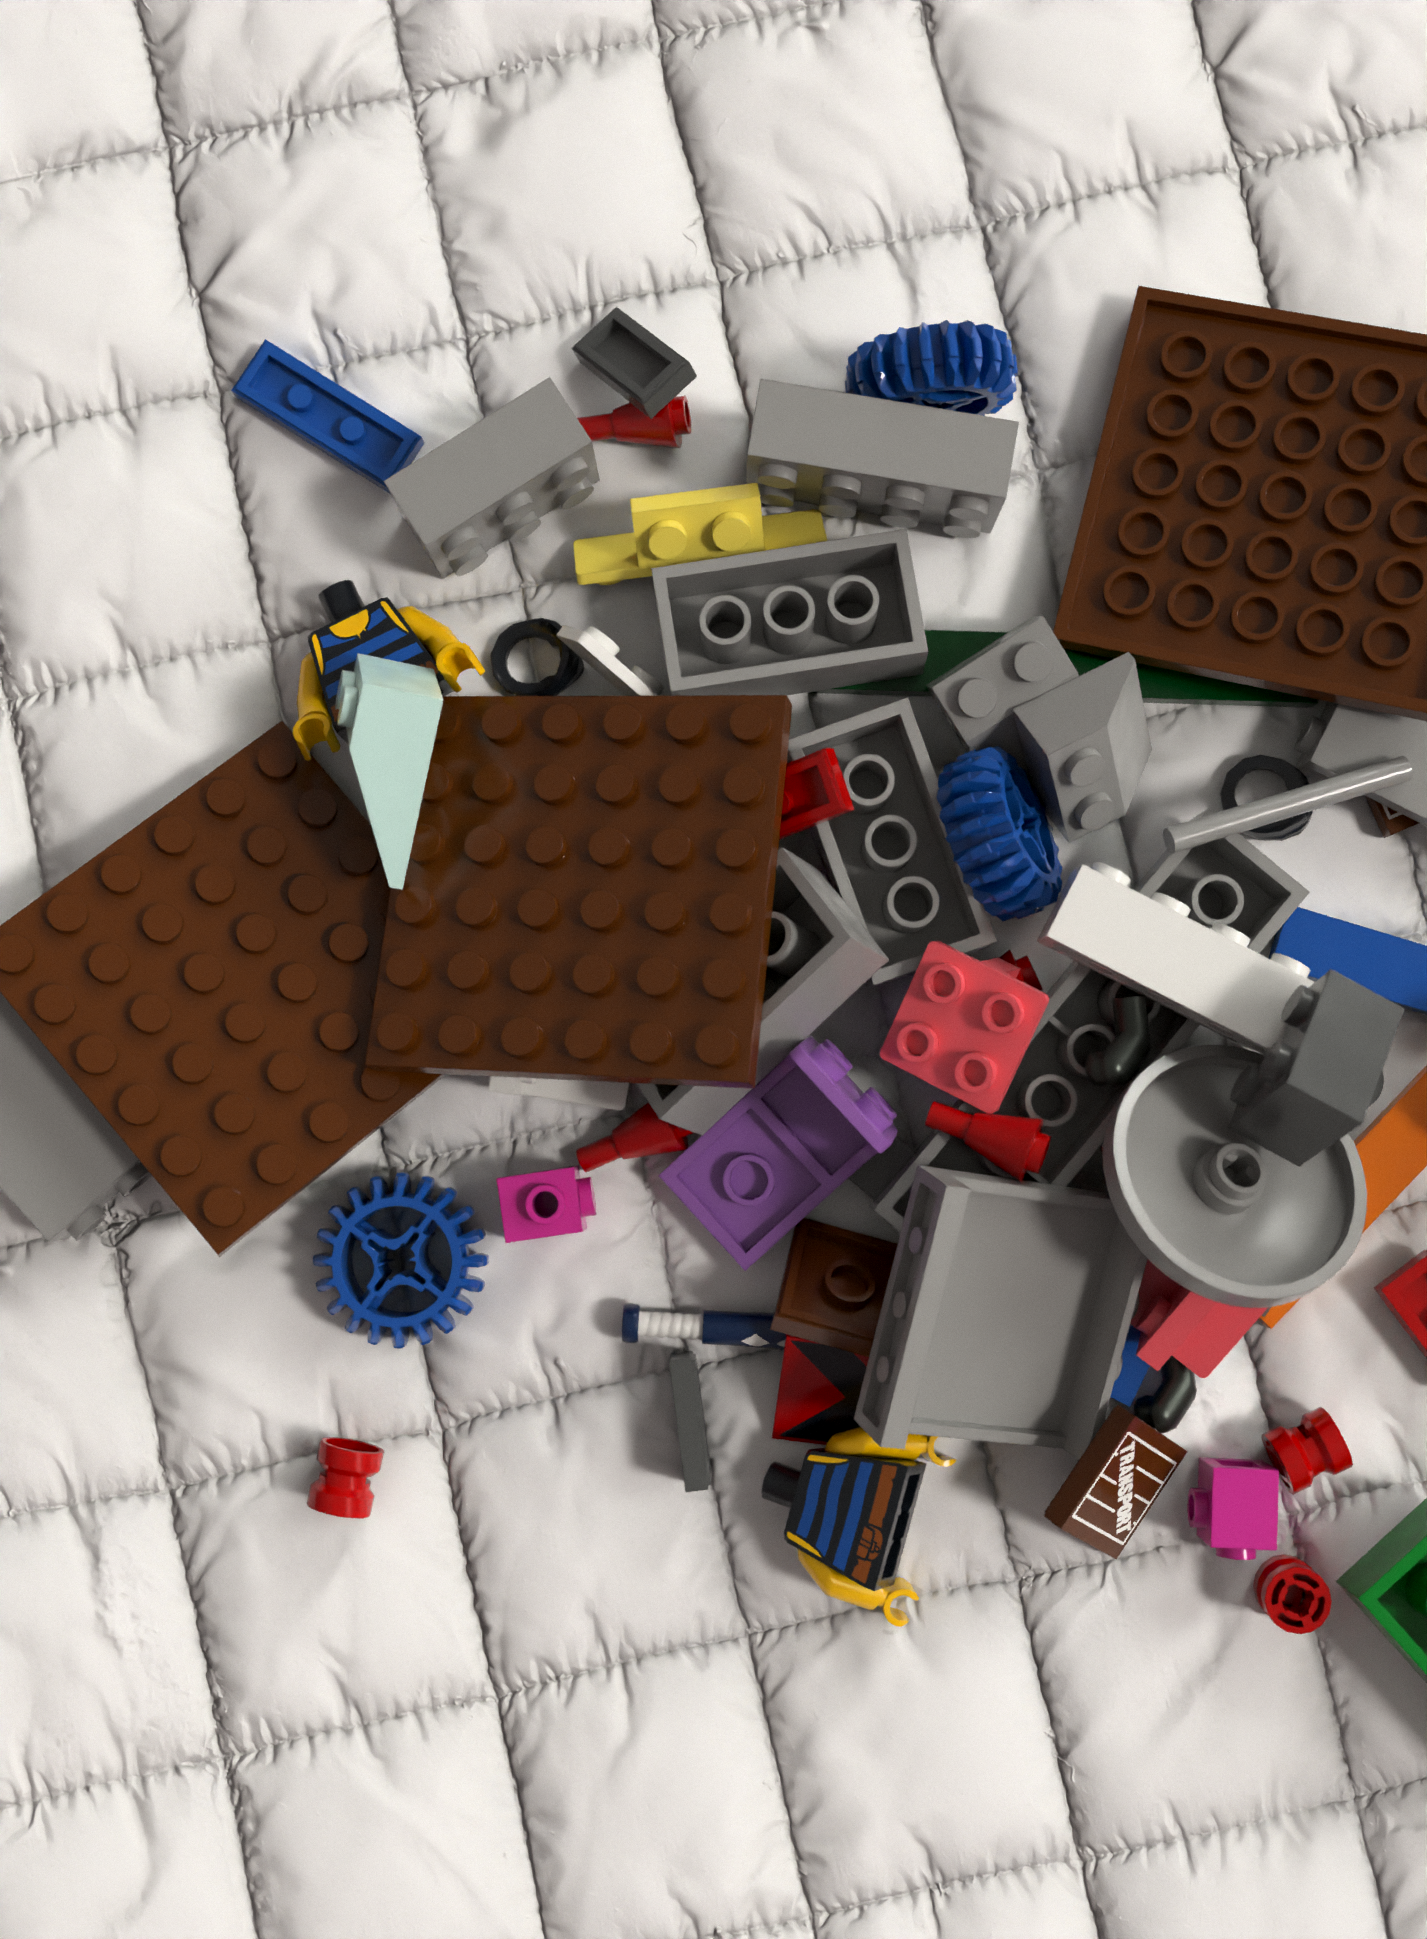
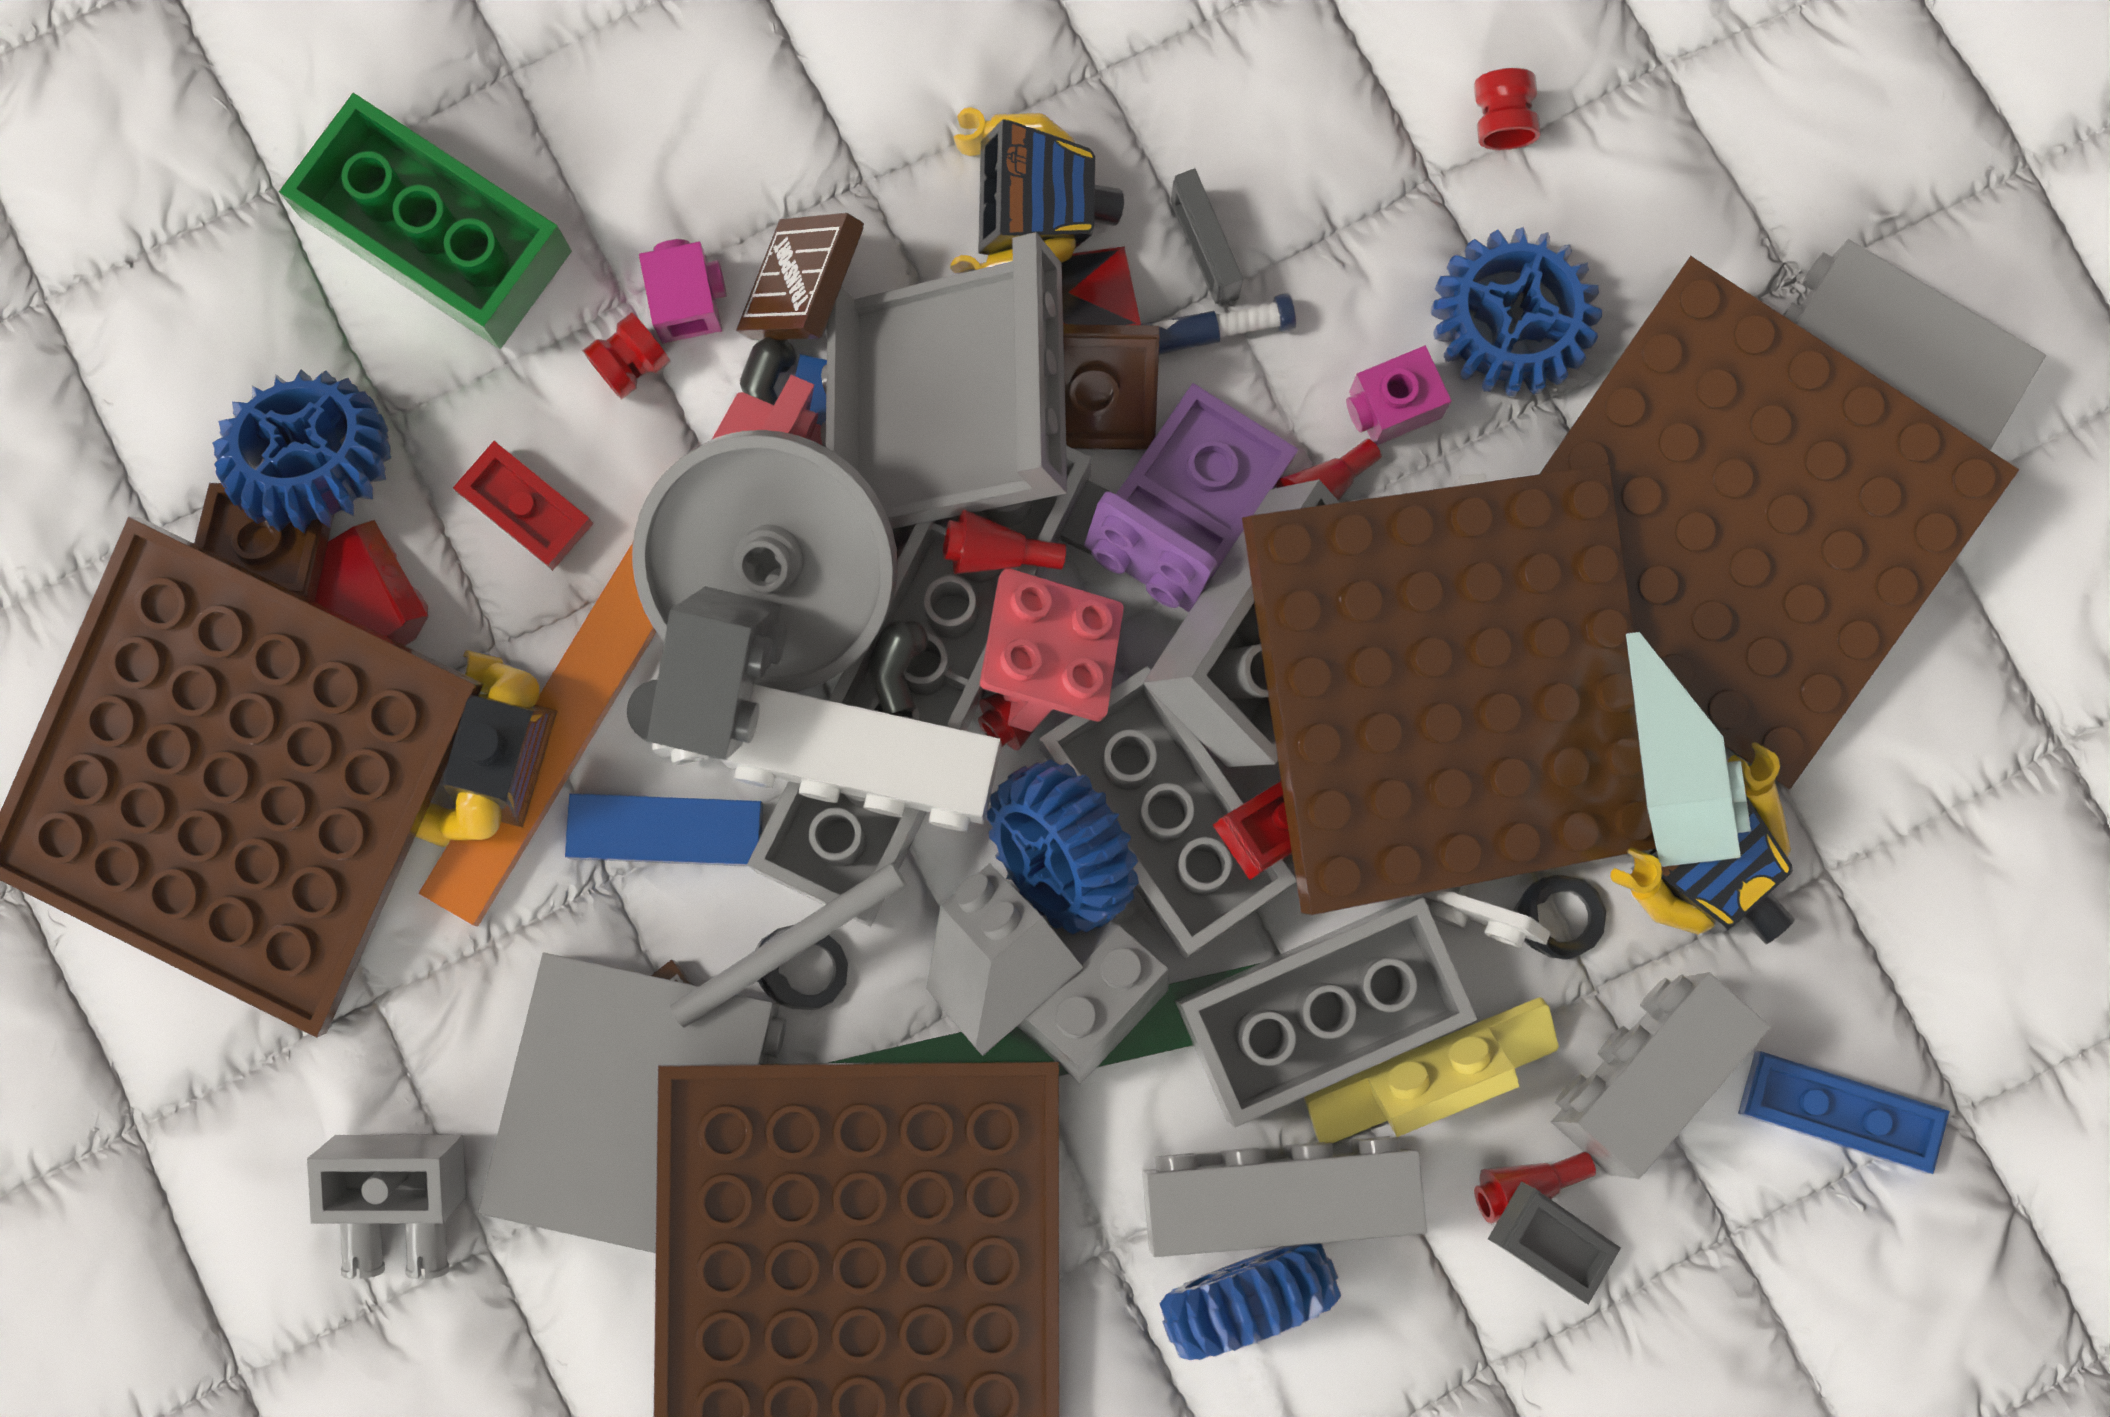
camera: 160 degrees right, 5 degrees down
(1284, 1581) = (617, 239): red wheel -> none

